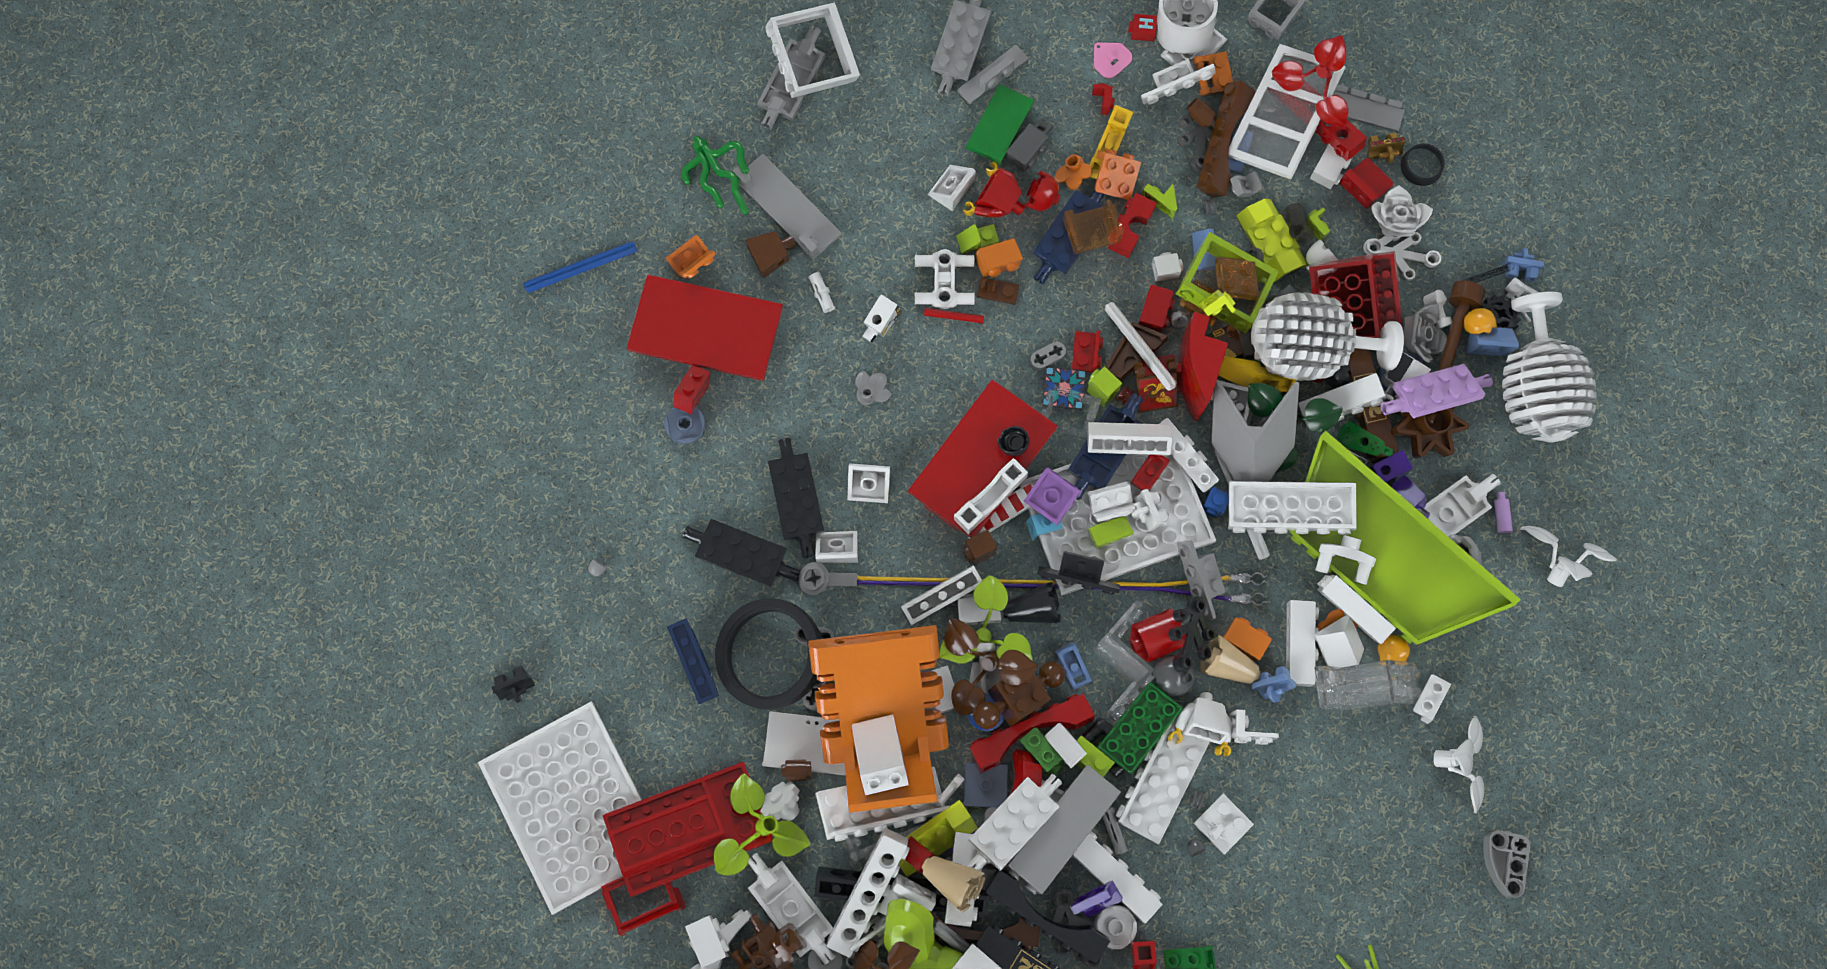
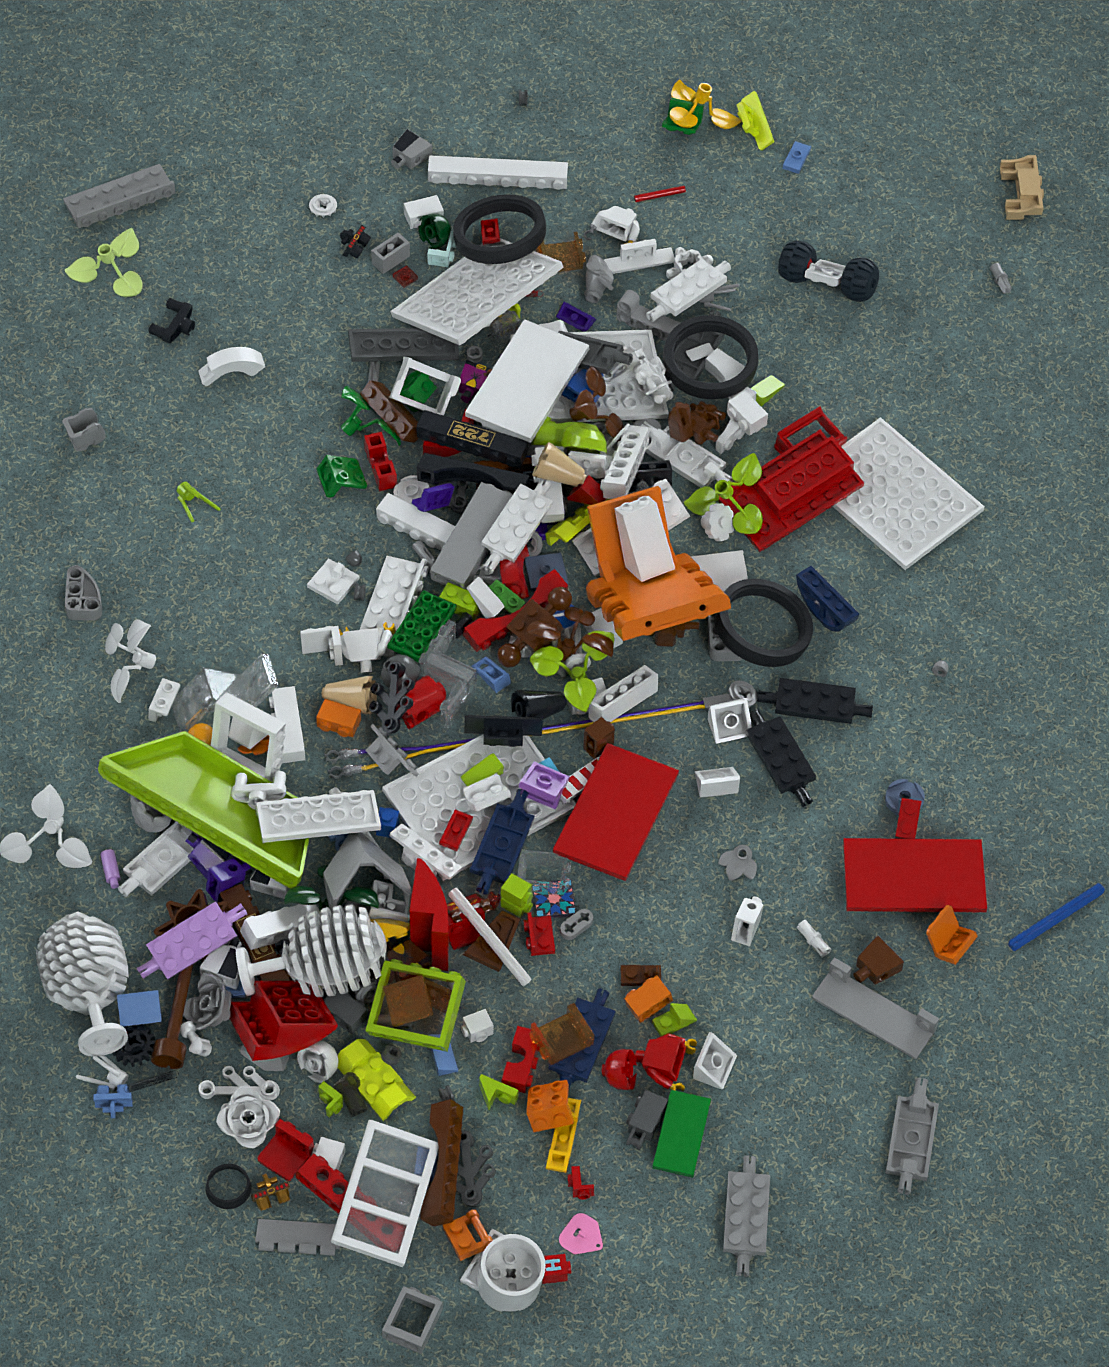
camera: 165 degrees right, 20 degrees down
(513, 687) = (985, 563): black hips -> none
(707, 157) = (967, 1034): green plant -> none
(796, 770) = (711, 547): reddish brown brick -> none
(839, 38) = (876, 1131): white window -> none
(944, 279) = (697, 971): white piece -> none
(953, 315) = (678, 944): red bar -> none
(956, 782) = (573, 563): white bar -> none
(984, 503) = (612, 755): white arch -> none
(992, 74) = (702, 1187): light grey bracket -> none
(1014, 441) = (592, 818): black hair -> none
(1073, 174) = (591, 1099): orange plate -> none
(1129, 438) = (483, 846): white brick -> none
(1147, 510) = (444, 789): white hips -> none
(1156, 308) = (480, 984): red brick -> none
(1175, 78) = (507, 1215): white bracket -> none
(1201, 112) = (474, 1177): reddish brown brick -> none
(1214, 303) = (425, 952): neon yellow bracket -> none
(1246, 185) = (414, 1120): light grey bracket -> none
(1275, 686) = (308, 682): medium blue hips -> none
(1332, 57) = (353, 1221): red plant -> none
(1356, 438) = (261, 898): green piece -> none
(1480, 321) = (155, 1019): light orange hair -> none

